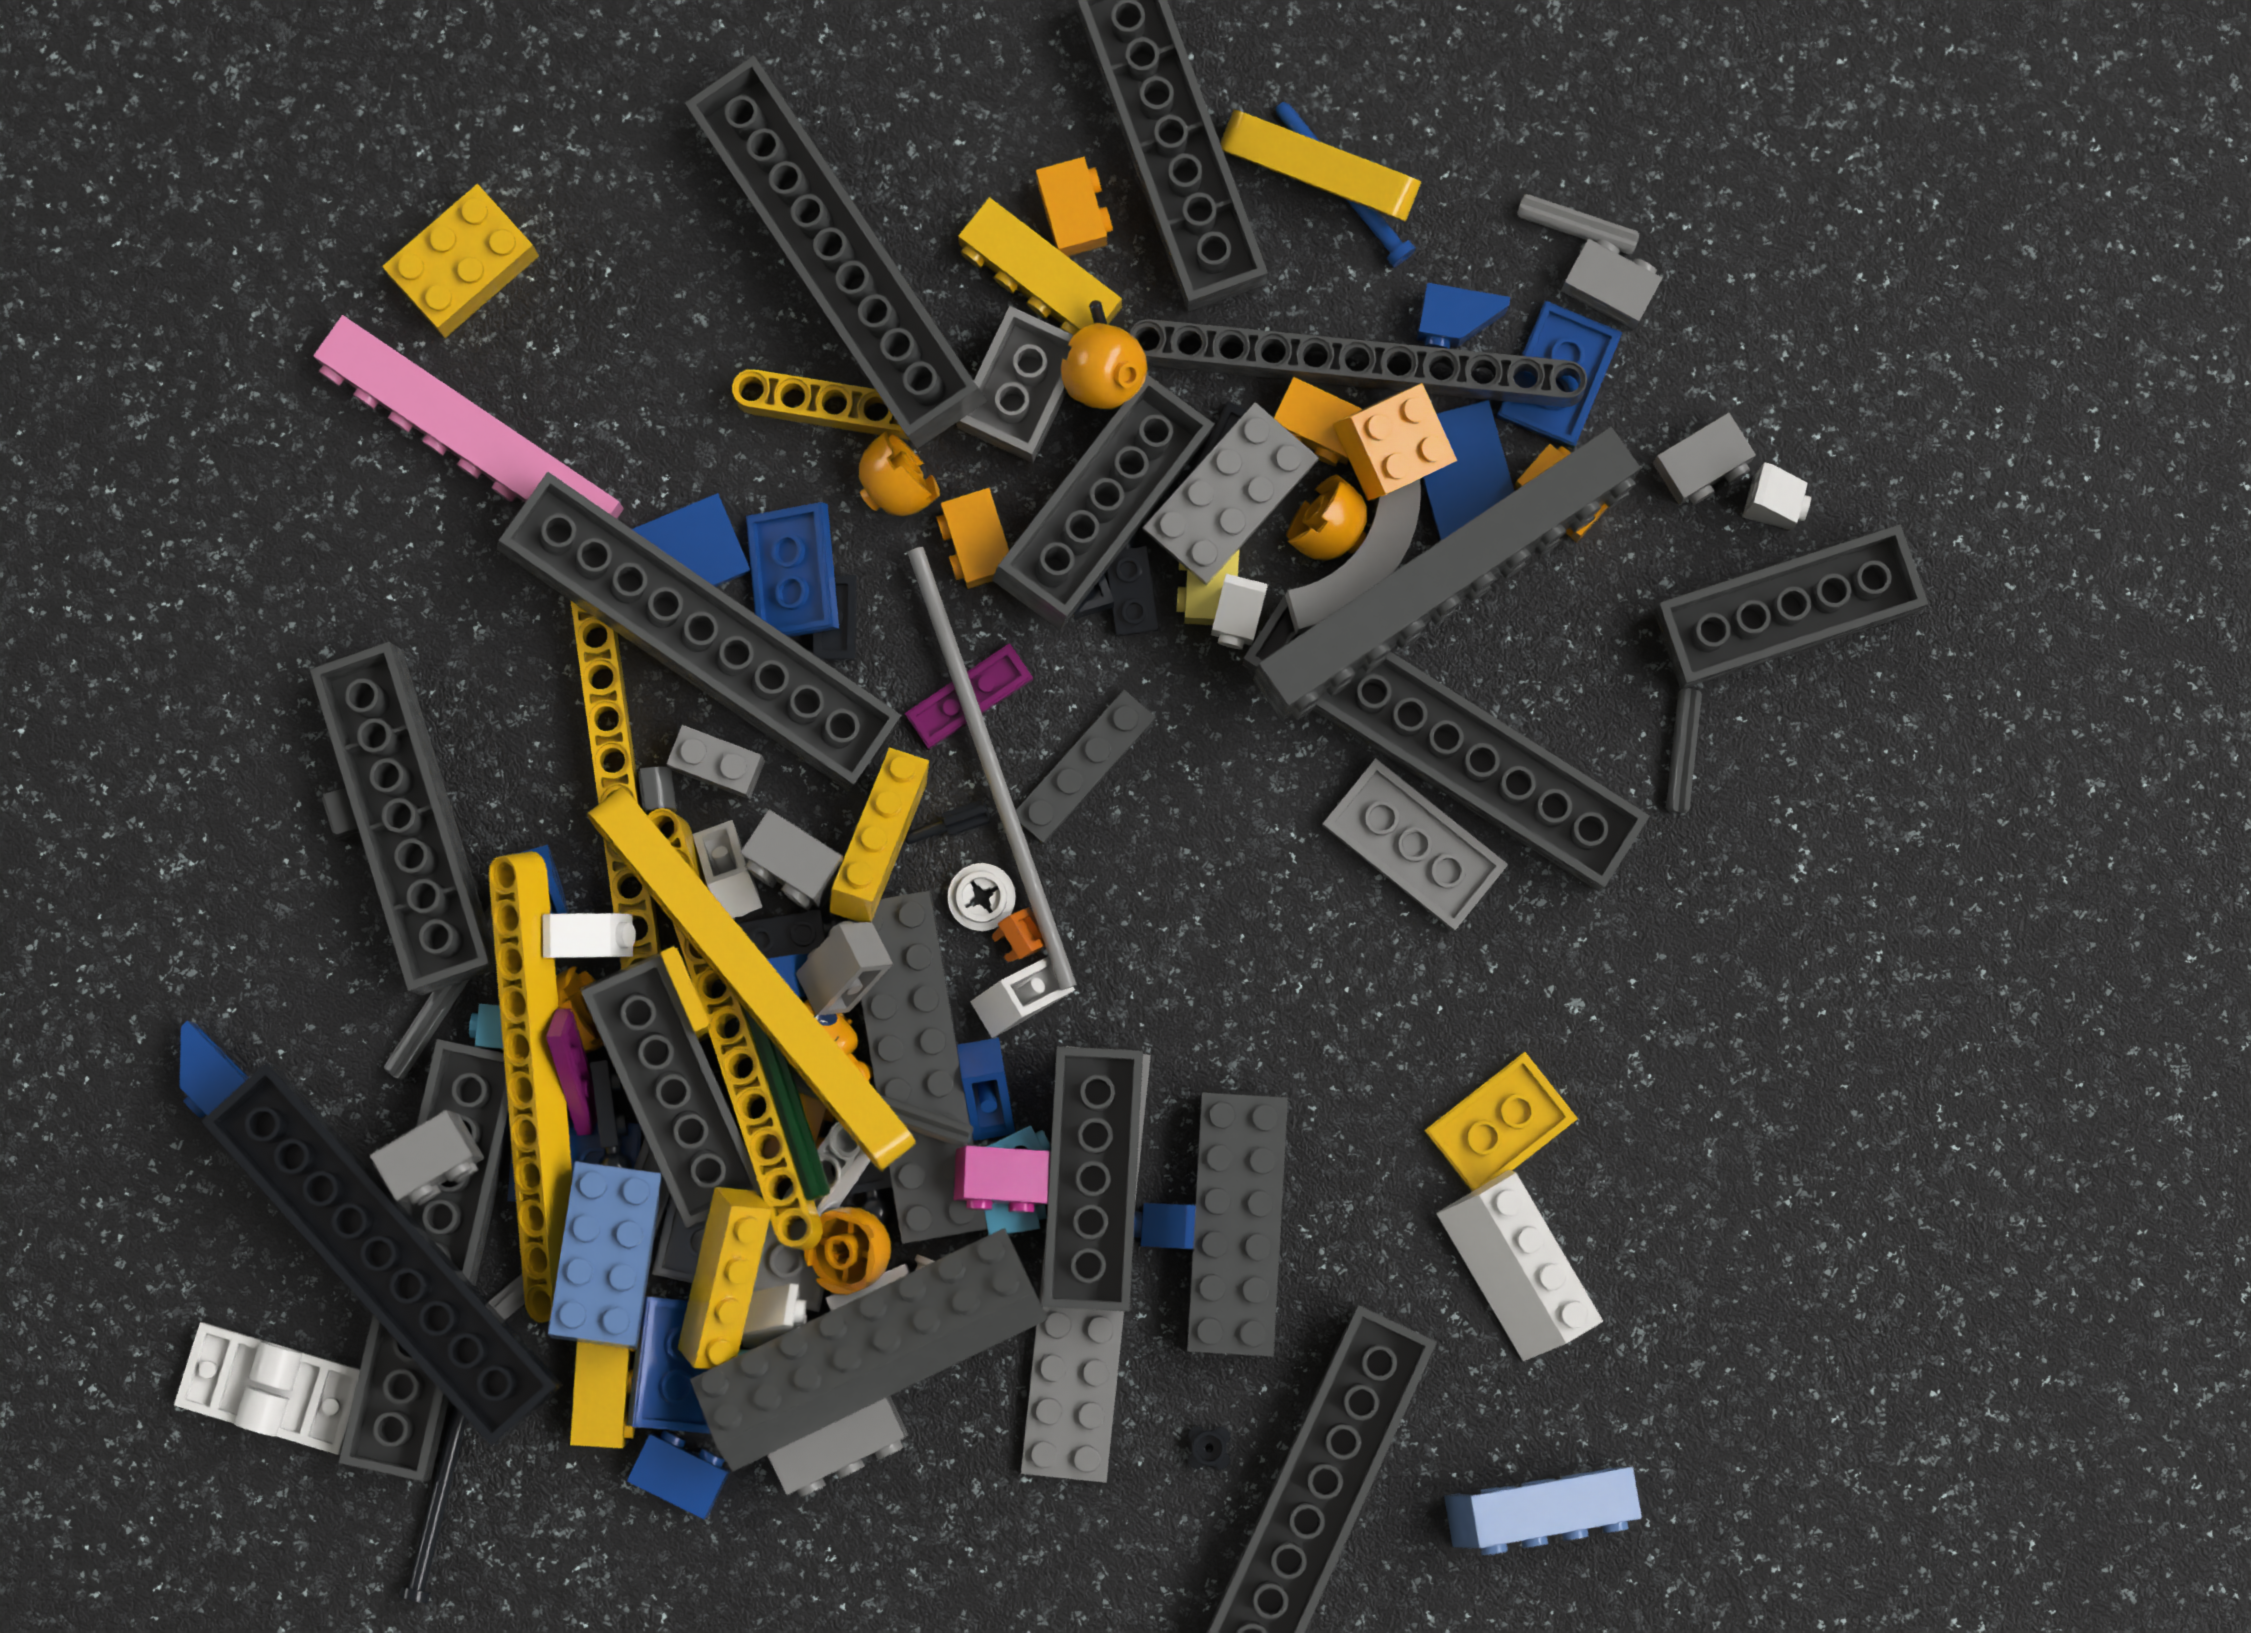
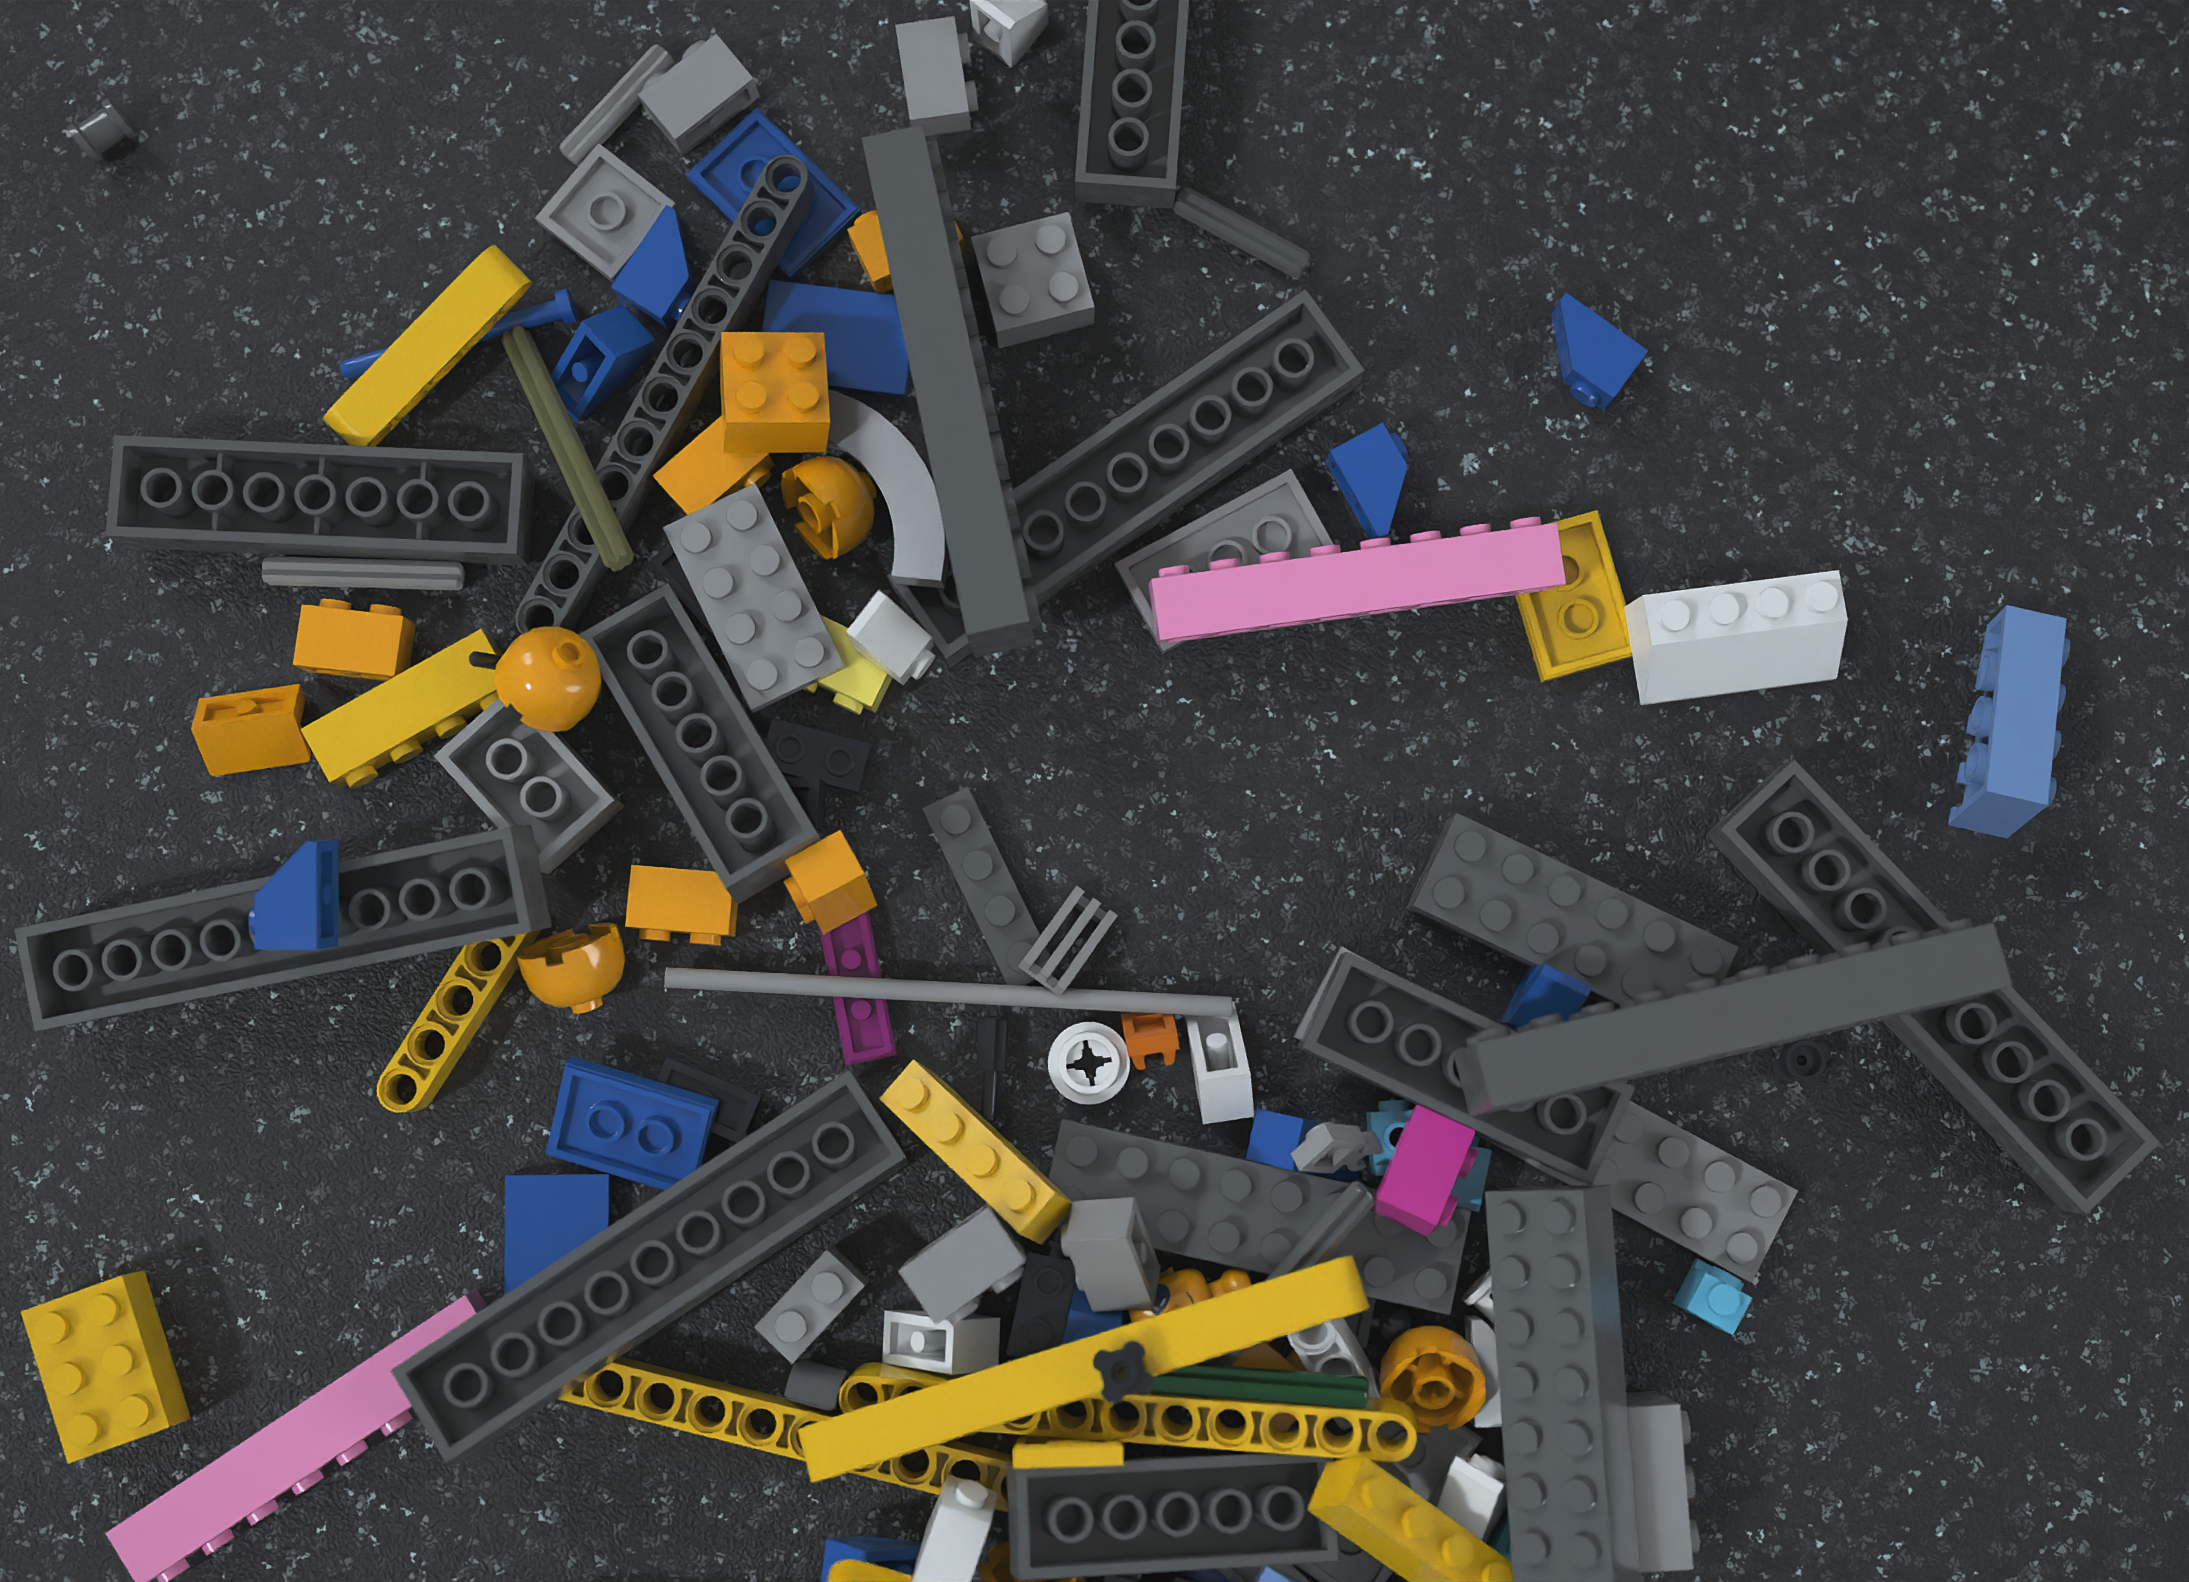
camera: 70 degrees left, 0 degrees up
(758, 1016) = (1138, 1378): none -> black plate
(859, 259) = (299, 901): none -> blue slope
(974, 158) = (251, 730): none -> light orange panel
(993, 1103) = (1335, 1145): none -> light grey plate
(998, 1446) = (1713, 1296): none -> medium azure brick
(1034, 641) = (828, 883): none -> light orange brick
(1100, 849) = (1089, 911): none -> light grey tile
(1129, 189) = (363, 573): none -> light grey axle
(1208, 1356) = (1740, 1016): none -> dark grey brick
(1287, 303) = (567, 448): none -> olive axle
(1367, 297) = (600, 360): none -> blue slope
(1435, 949) = (1356, 582): none -> bright pink brick
(1487, 251) = (603, 211): none -> light grey plate
(1528, 931) = (1371, 477): none -> blue slope
(1573, 603) = (1033, 280): none -> light grey brick
(1700, 1067) = (1592, 353): none -> blue slope

